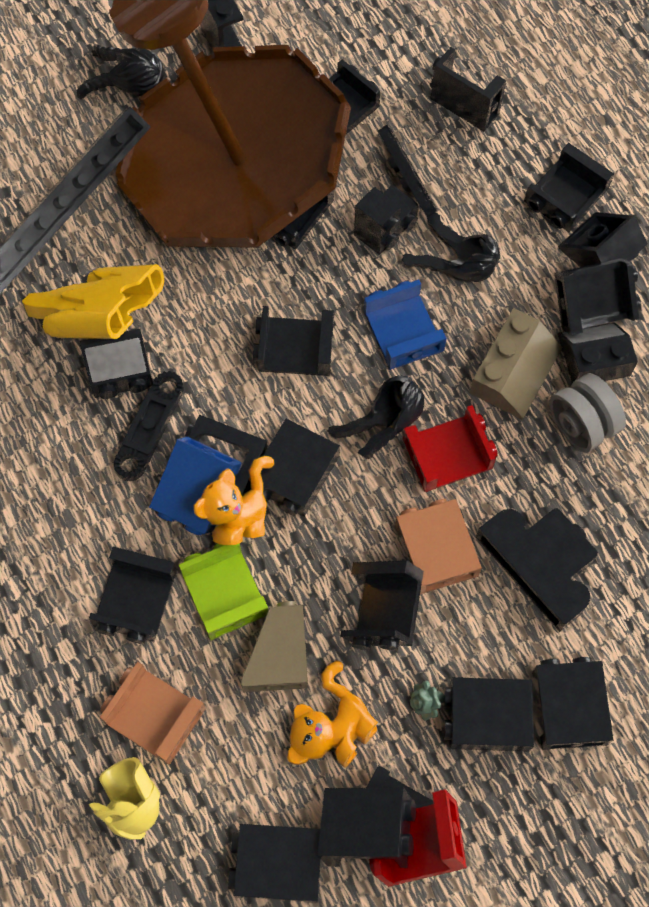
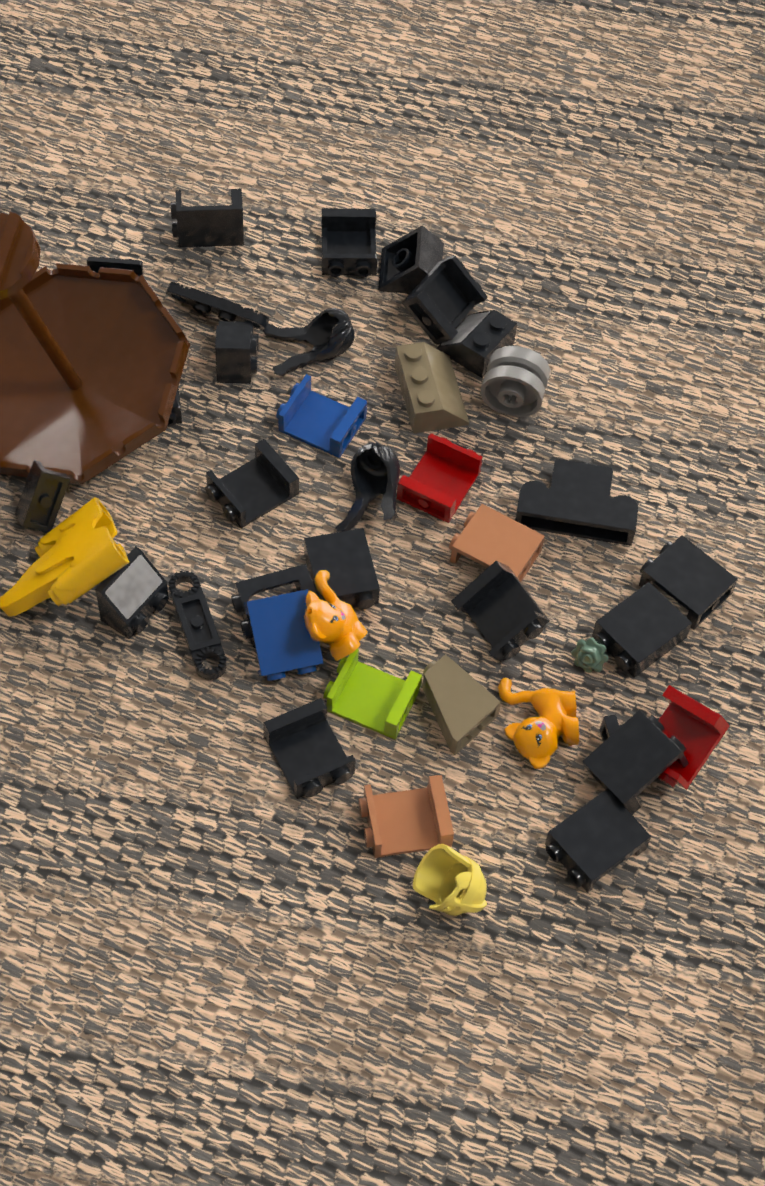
camera: 45 degrees left, 10 degrees down
(125, 237) = (41, 498): none -> black panel

